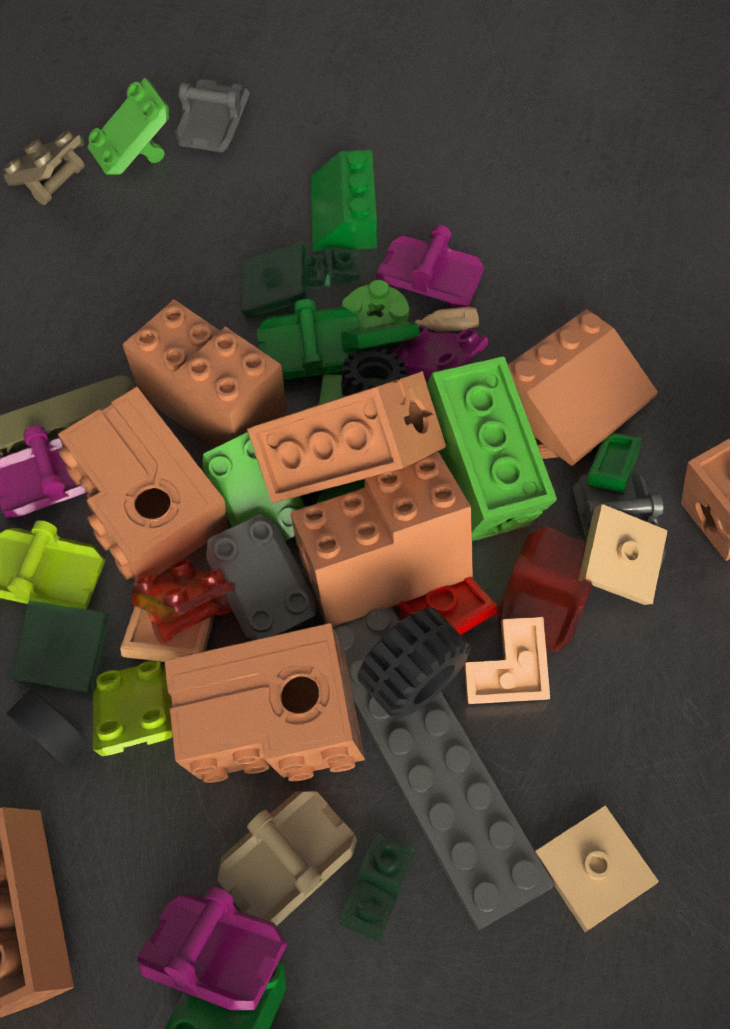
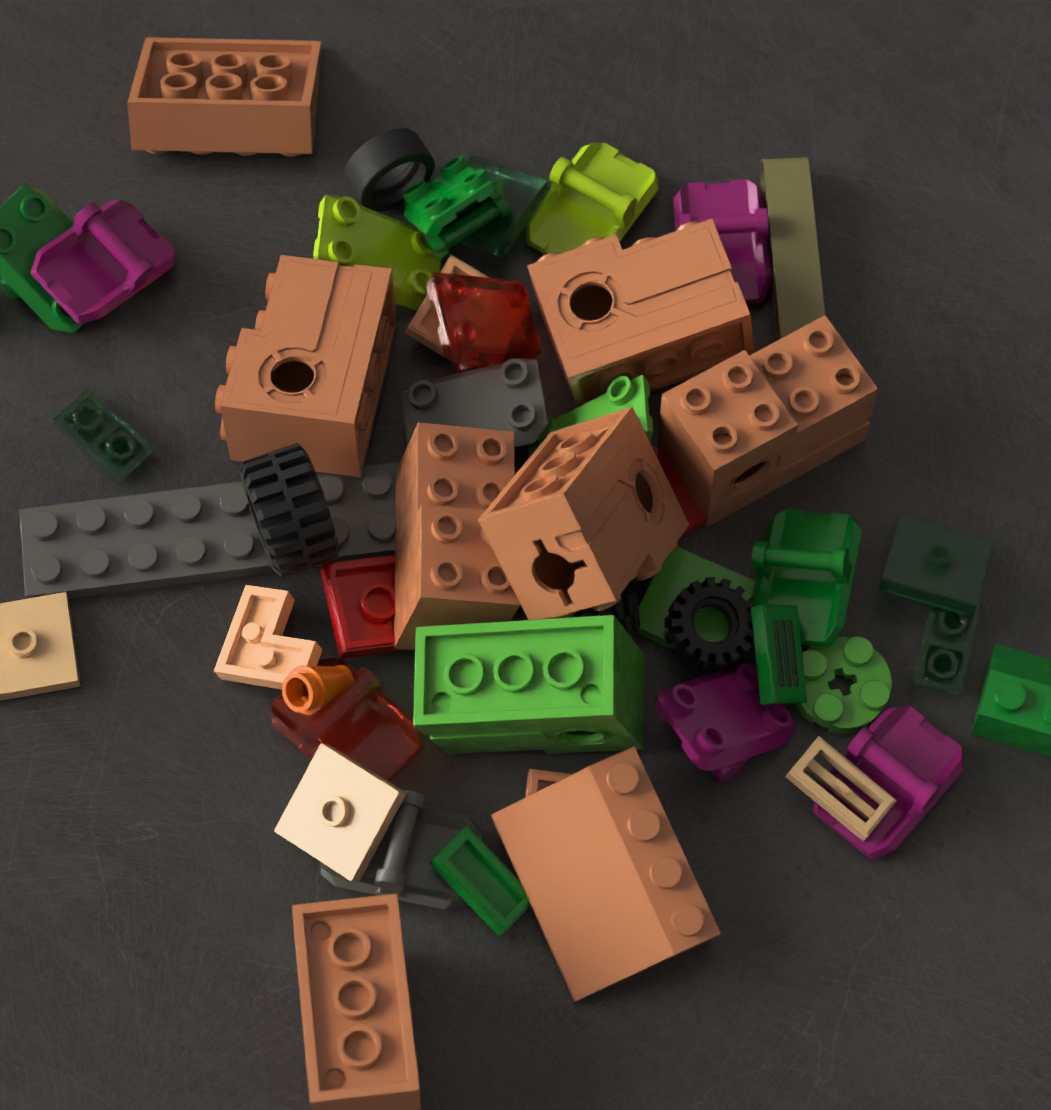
camera: 110 degrees right, 5 degrees up
(72, 655) = (440, 200): none -> green shield
(285, 856) = (167, 361): dark tan shield -> none
(448, 300) = (829, 802): none -> tan tile
(451, 319) = (788, 798): tan piece -> none
(545, 599) = (314, 687): none -> orange cone

